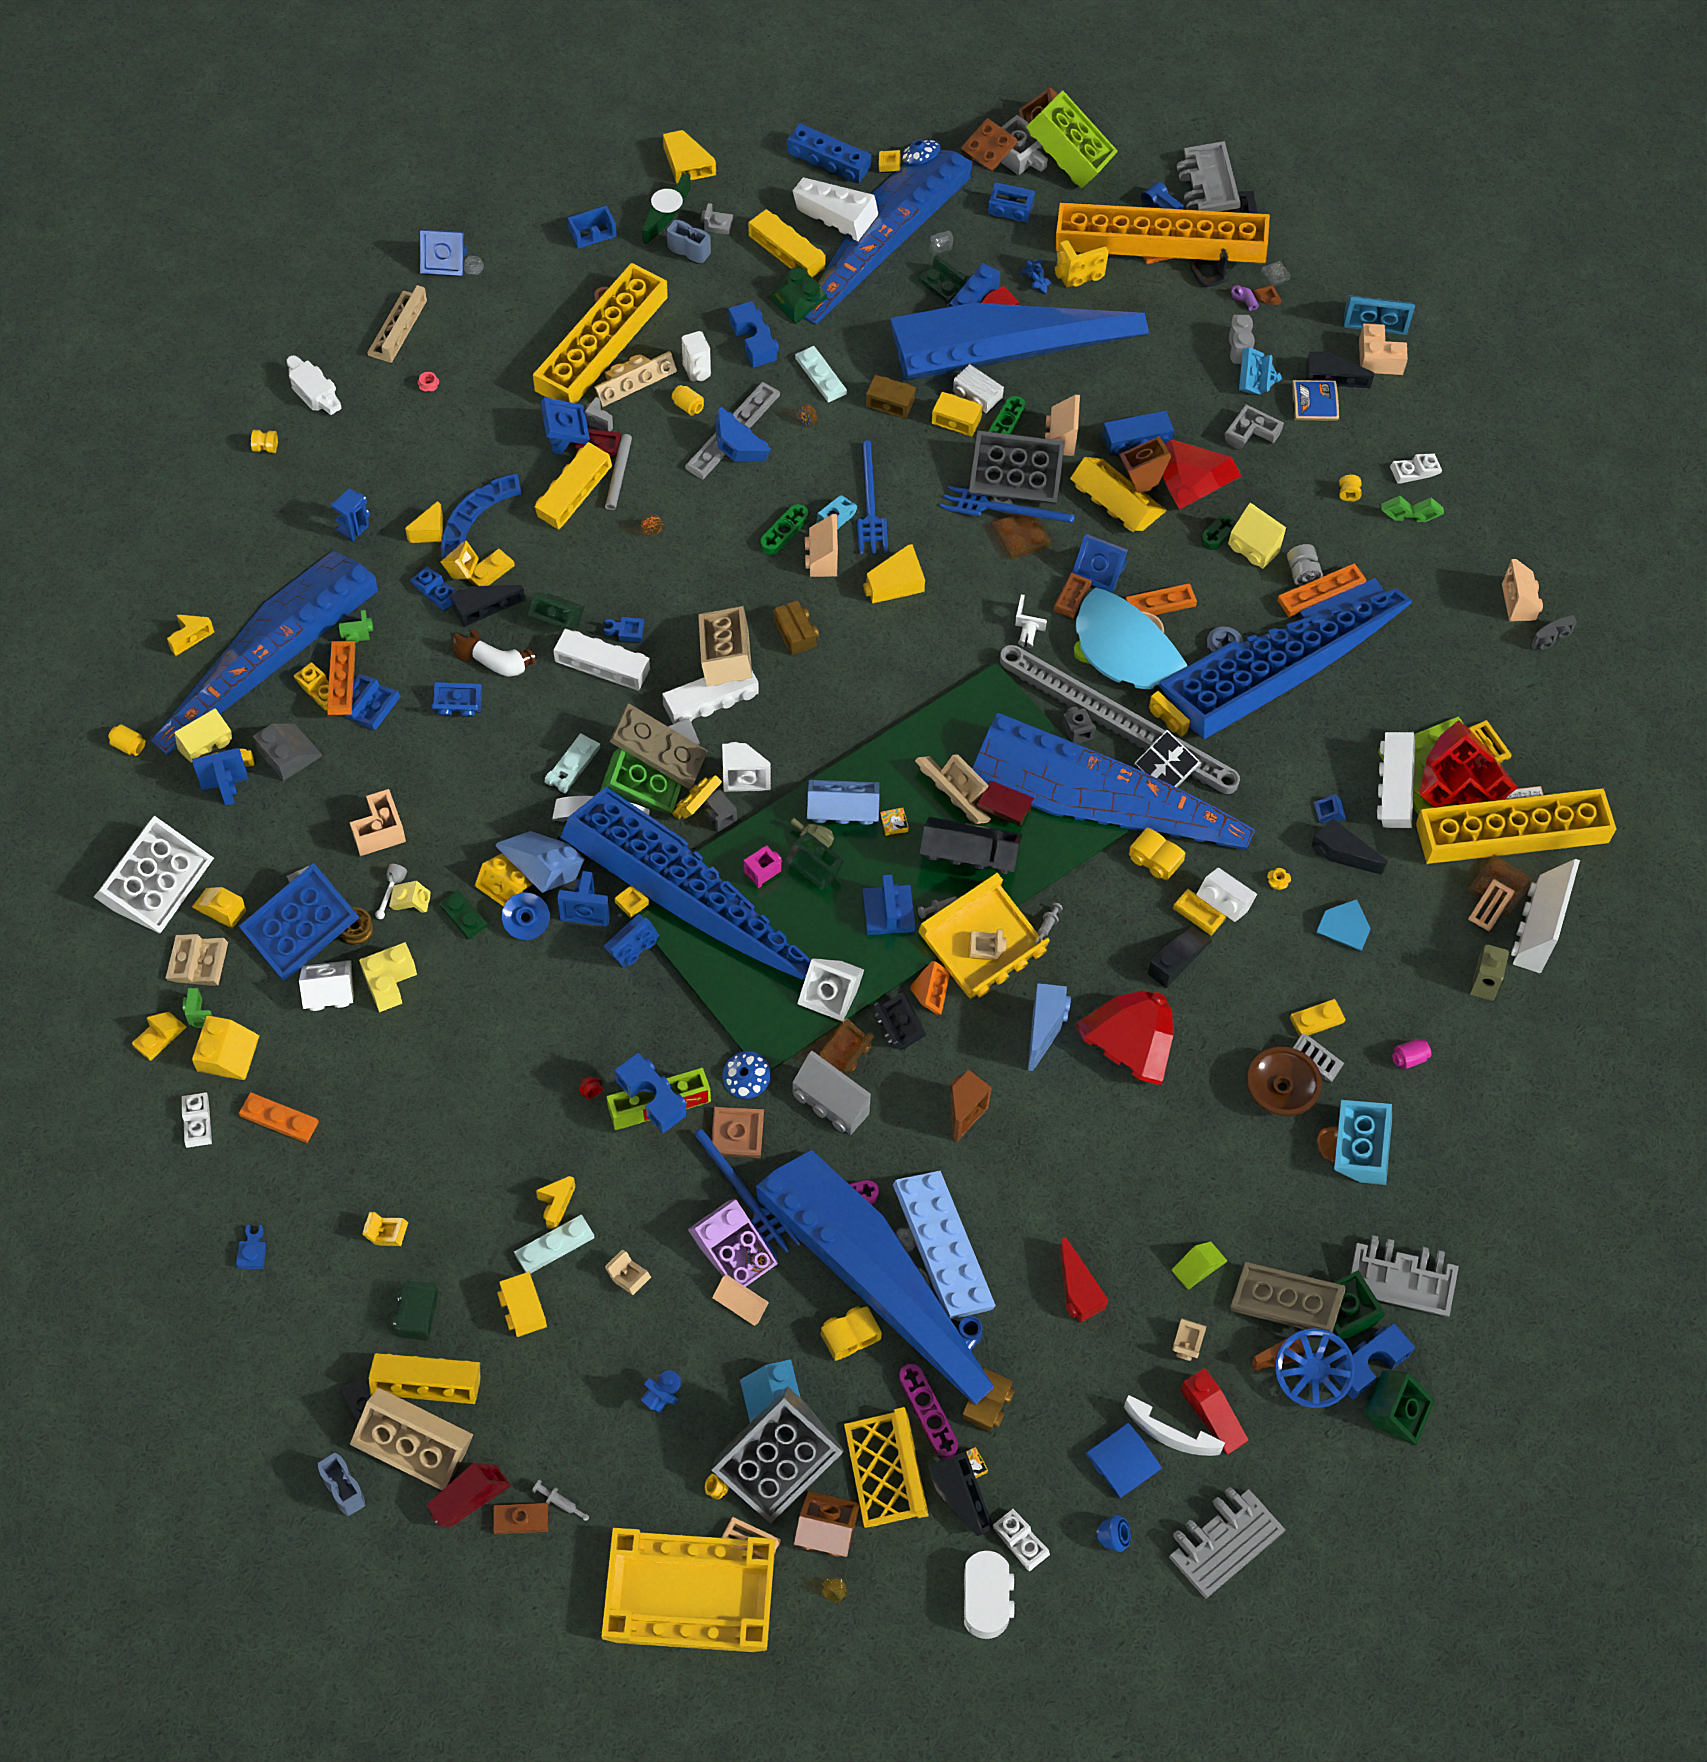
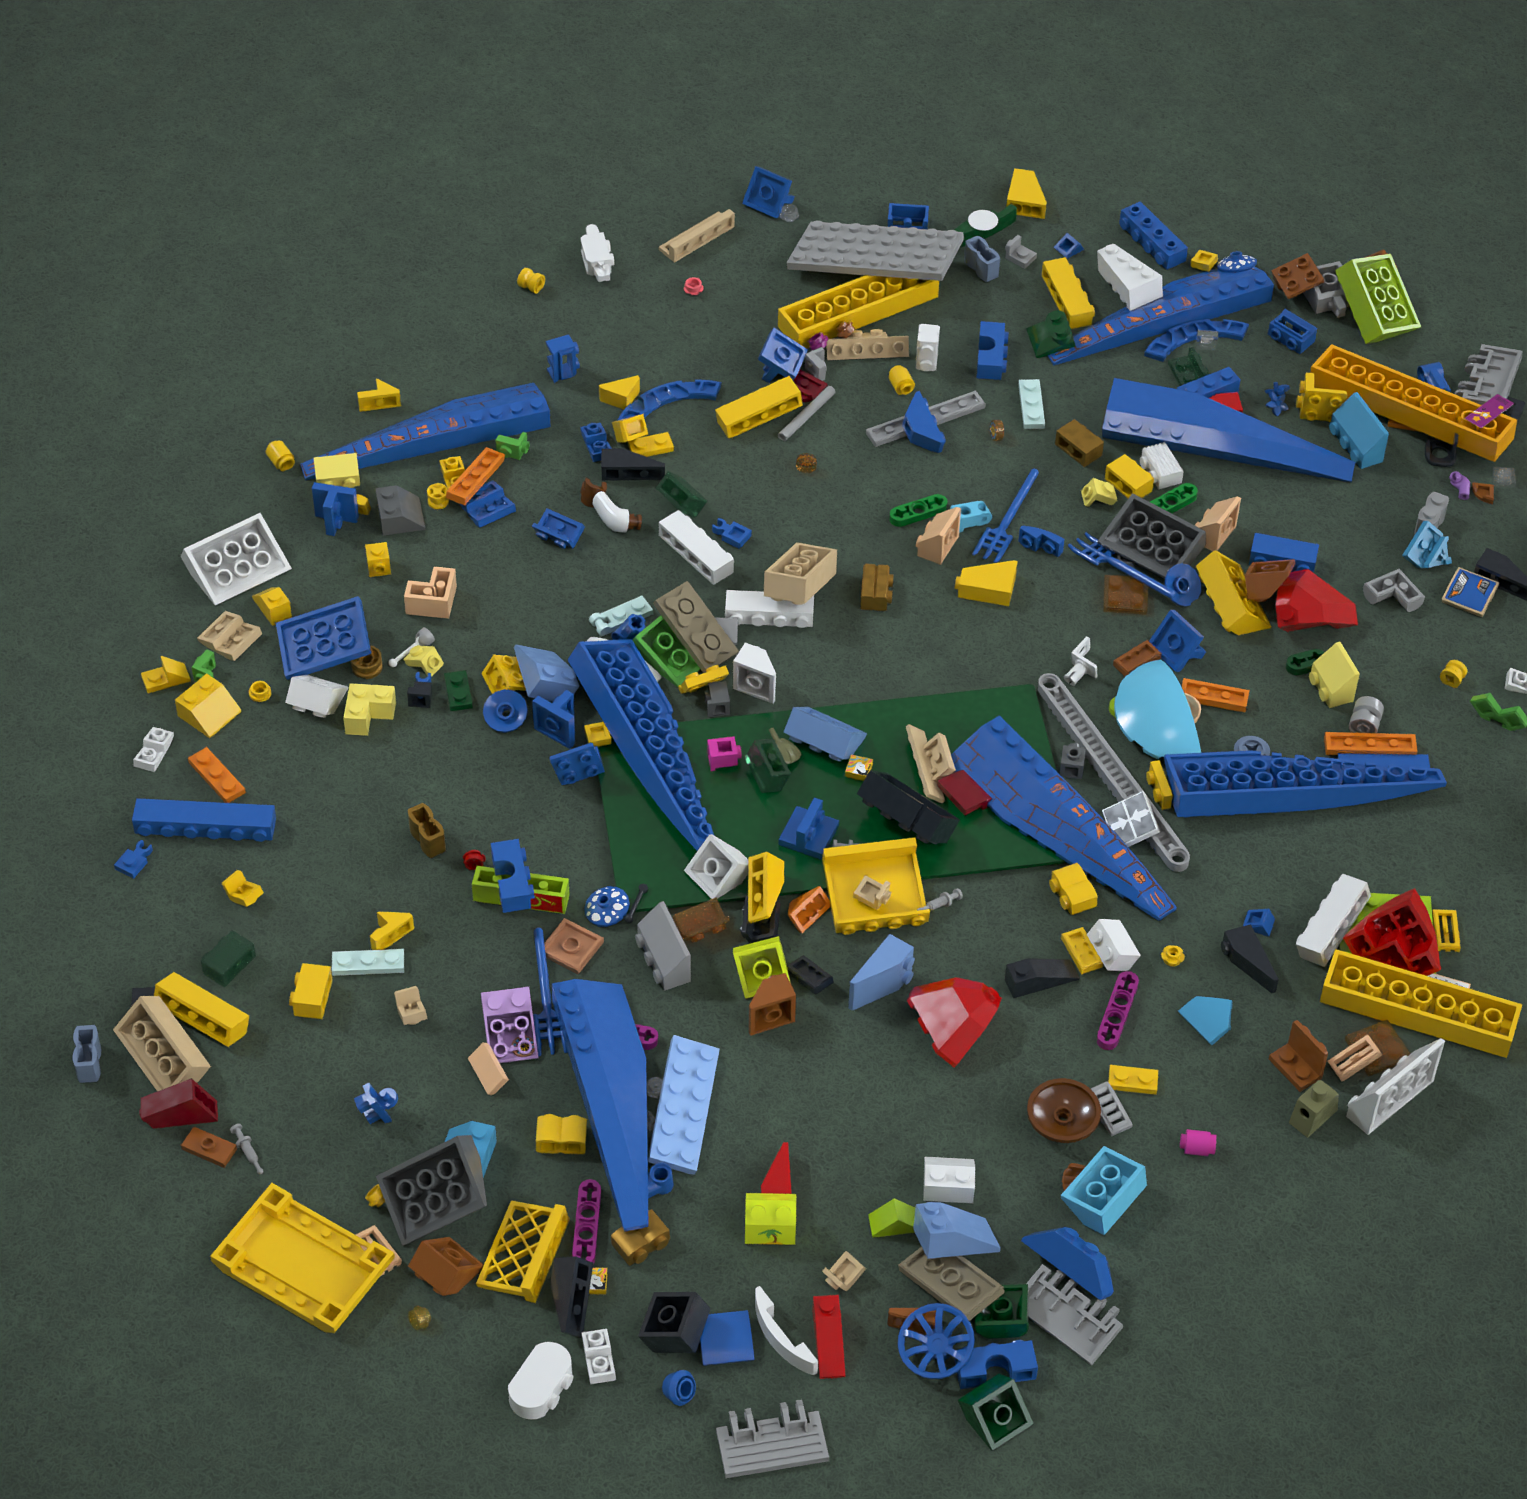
camera: 30 degrees right, 10 degrees down
(264, 1001) = (260, 686): none -> yellow plate
(298, 1173) = (204, 819): none -> blue brick
(299, 810) = (378, 559): none -> yellow brick
(313, 709) = (437, 496): none -> yellow wheel
(431, 934) = (421, 693): none -> black piece
(533, 1081) = (426, 830): none -> pearl gold brick
(586, 274) = (875, 250): none -> light grey plate
(588, 392) = (817, 341): none -> magenta plate
(595, 776) = (630, 628): none -> blue piece
(607, 369) = (845, 329): none -> dark orange plate
(756, 195) = (1068, 246): none -> blue slope
(770, 1041) = (643, 888): none -> black hinge
(887, 987) = (764, 885): none -> yellow slope
(908, 512) = (1035, 538): none -> blue slope
(920, 237) = (1187, 332): none -> blue tile
(929, 1068) = (758, 962): none -> neon yellow slope
(937, 439) = (1098, 491): none -> light yellow bracket
(976, 1055) = (809, 975): none -> black plate
(1070, 500) = (1188, 581): none -> blue dish
(1076, 1472) = (674, 1322): none -> black brick
(1097, 1320) = (770, 1218): none -> neon yellow slope
(1133, 280) = (1359, 432): none -> dark azure slope
(1222, 1197) = (949, 1180): none -> white slope
(1240, 215) = (1489, 411): none -> magenta sticker
(1262, 1252) = (952, 1231): none -> medium blue slope
(1267, 956) = (1116, 1010): none -> magenta beam
(1378, 1222) = (1074, 1258): none -> blue wedge
(1449, 927) = (1302, 1058): none -> dark orange bracket

